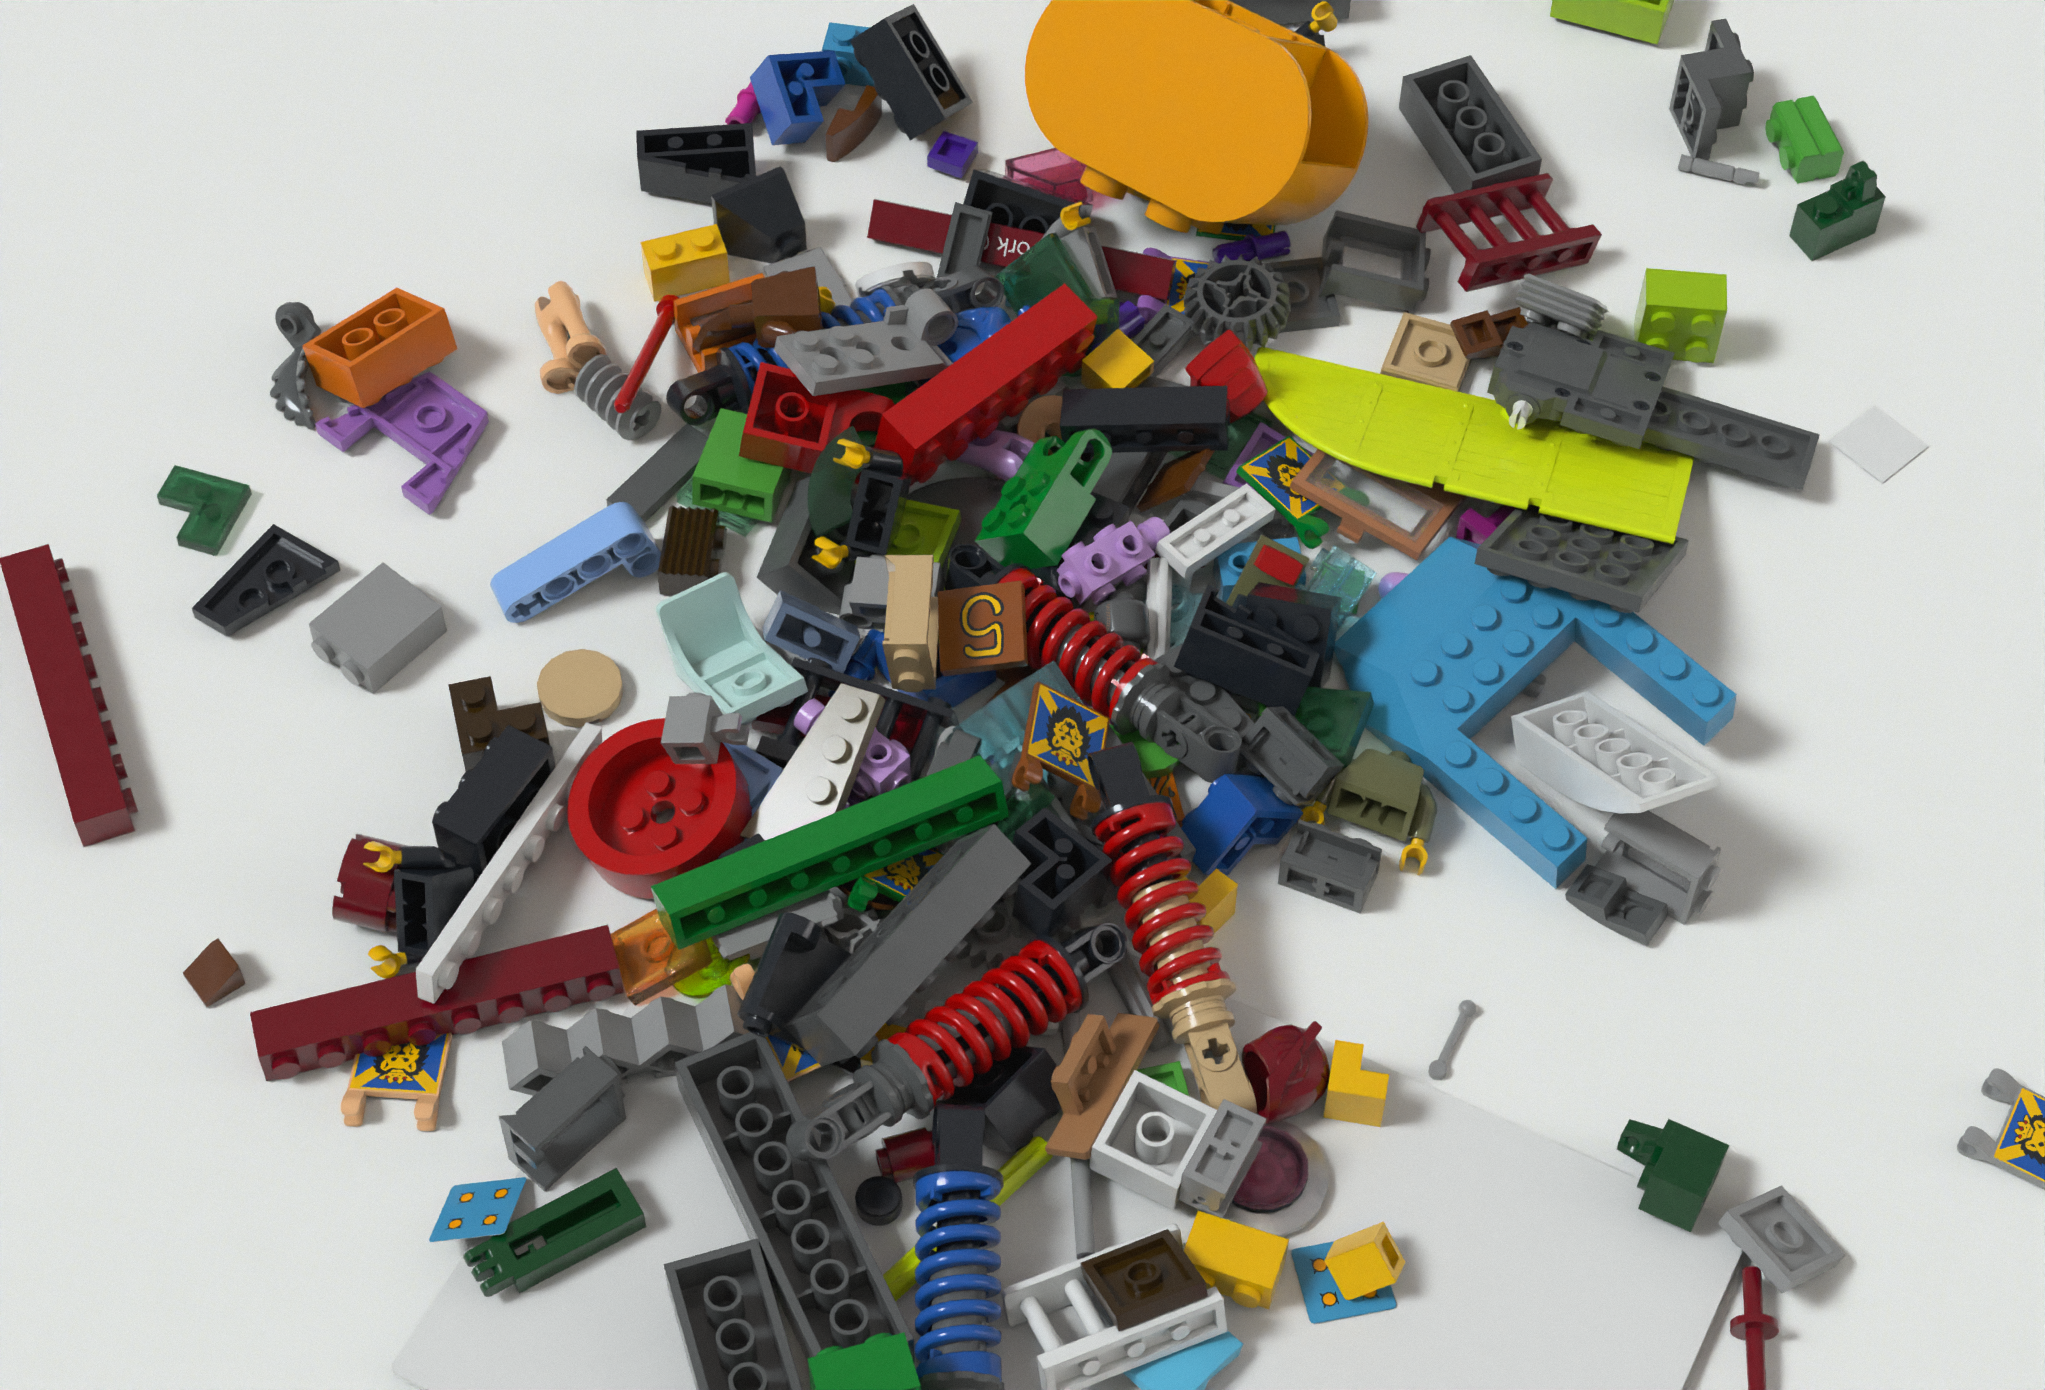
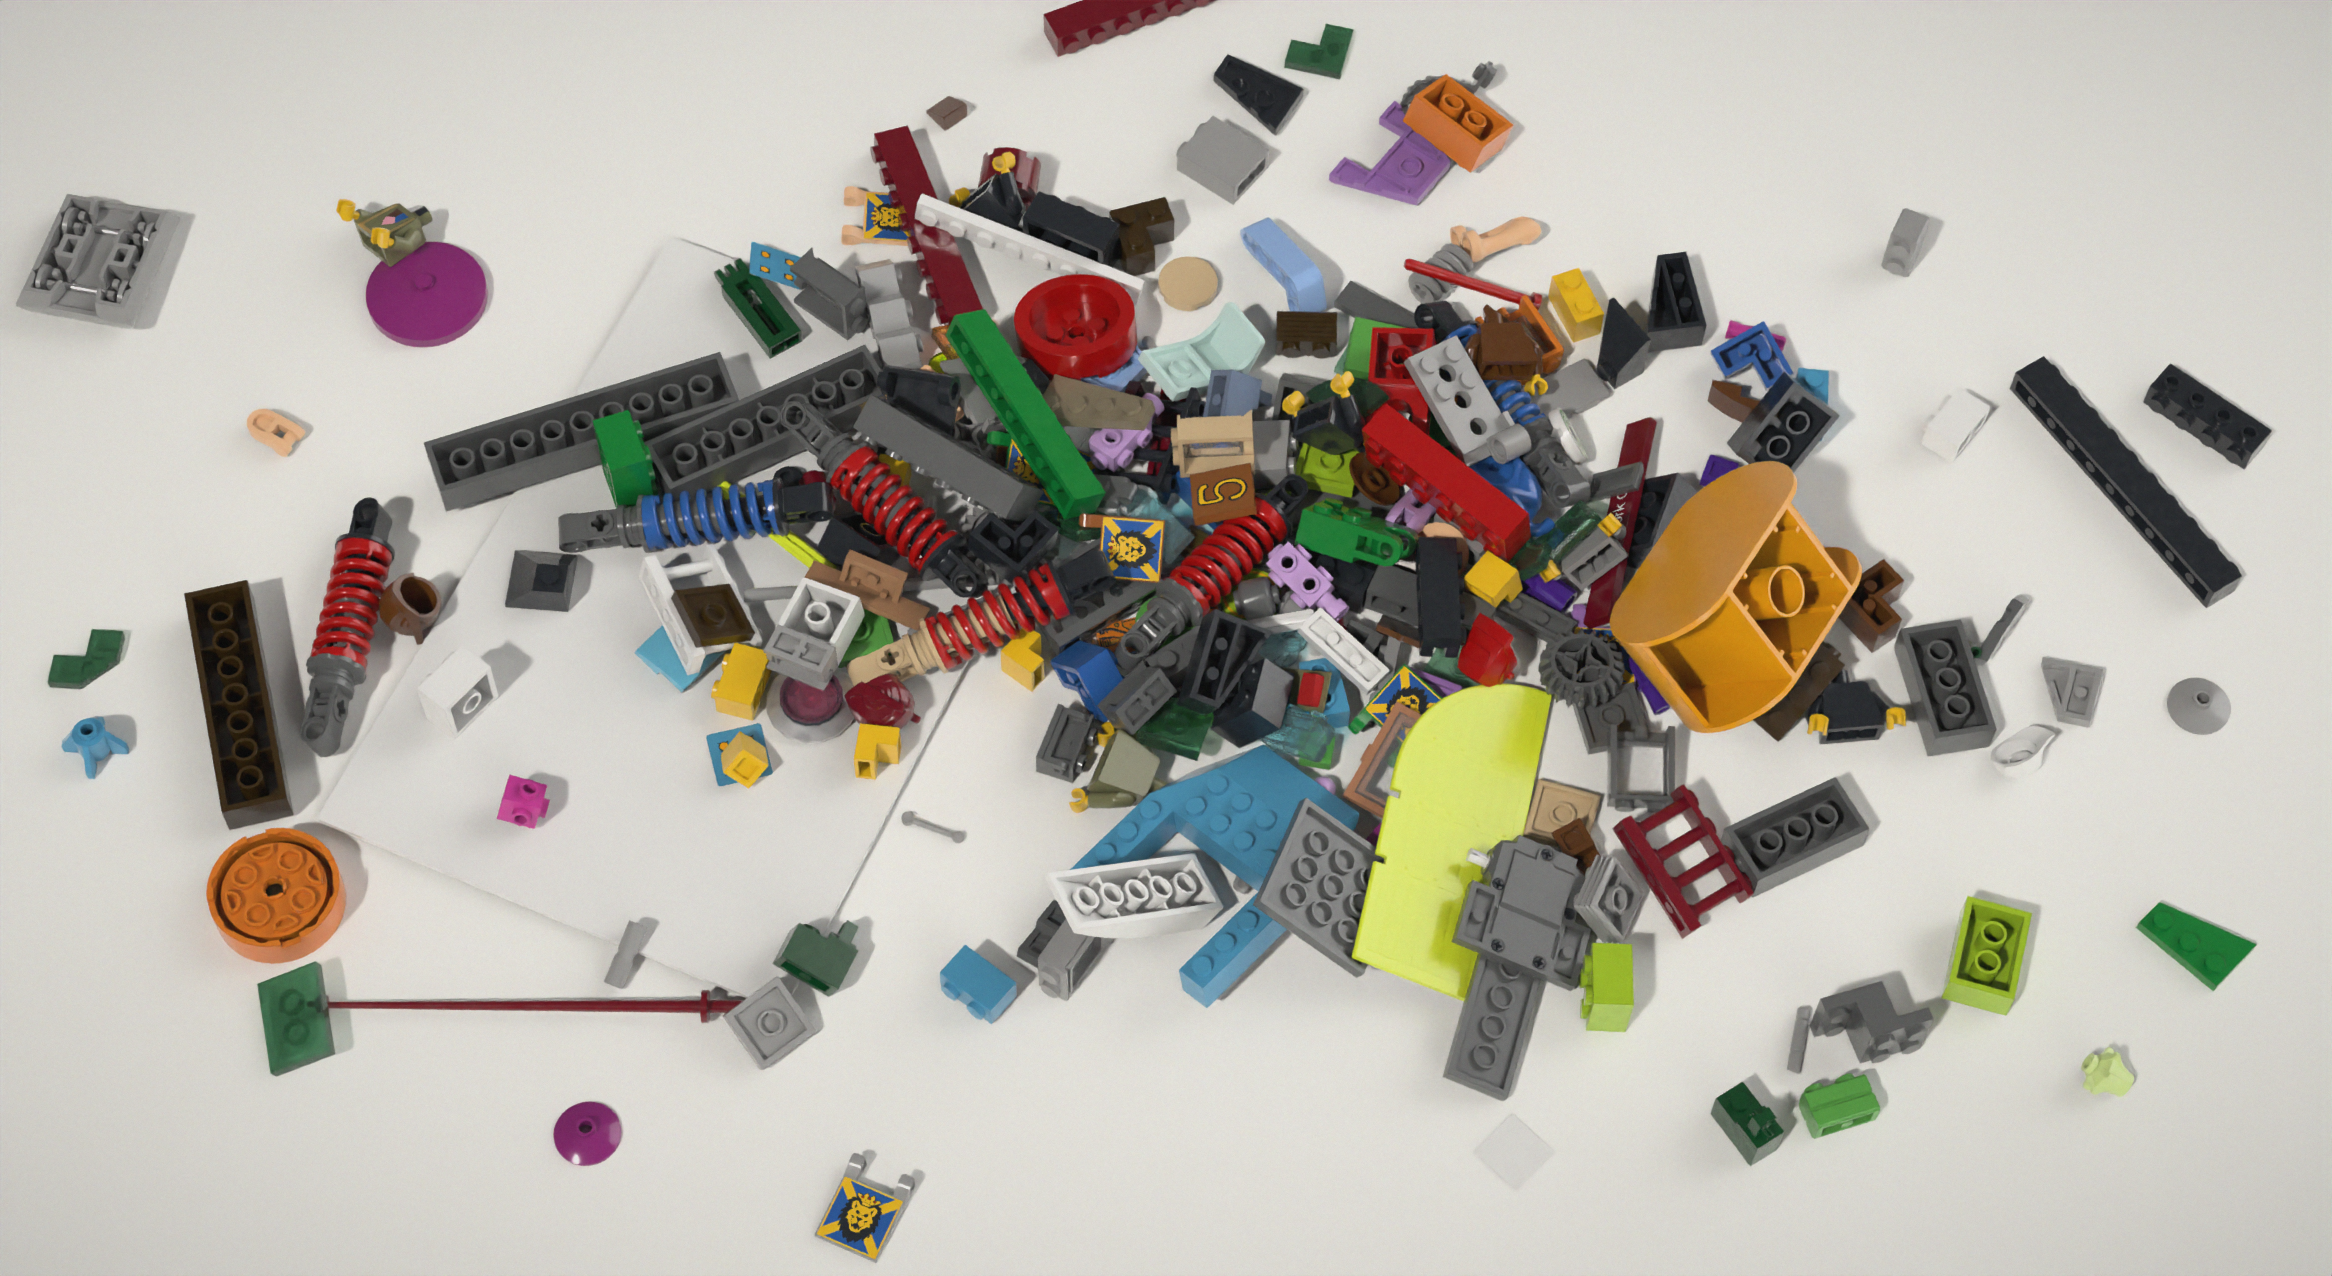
camera: 85 degrees right, 5 degrees up
(697, 727) = (1113, 324): light grey brick -> none
(946, 488) = (1373, 481): none -> reddish brown dish
(1707, 980) = (977, 985): none -> dark azure brick

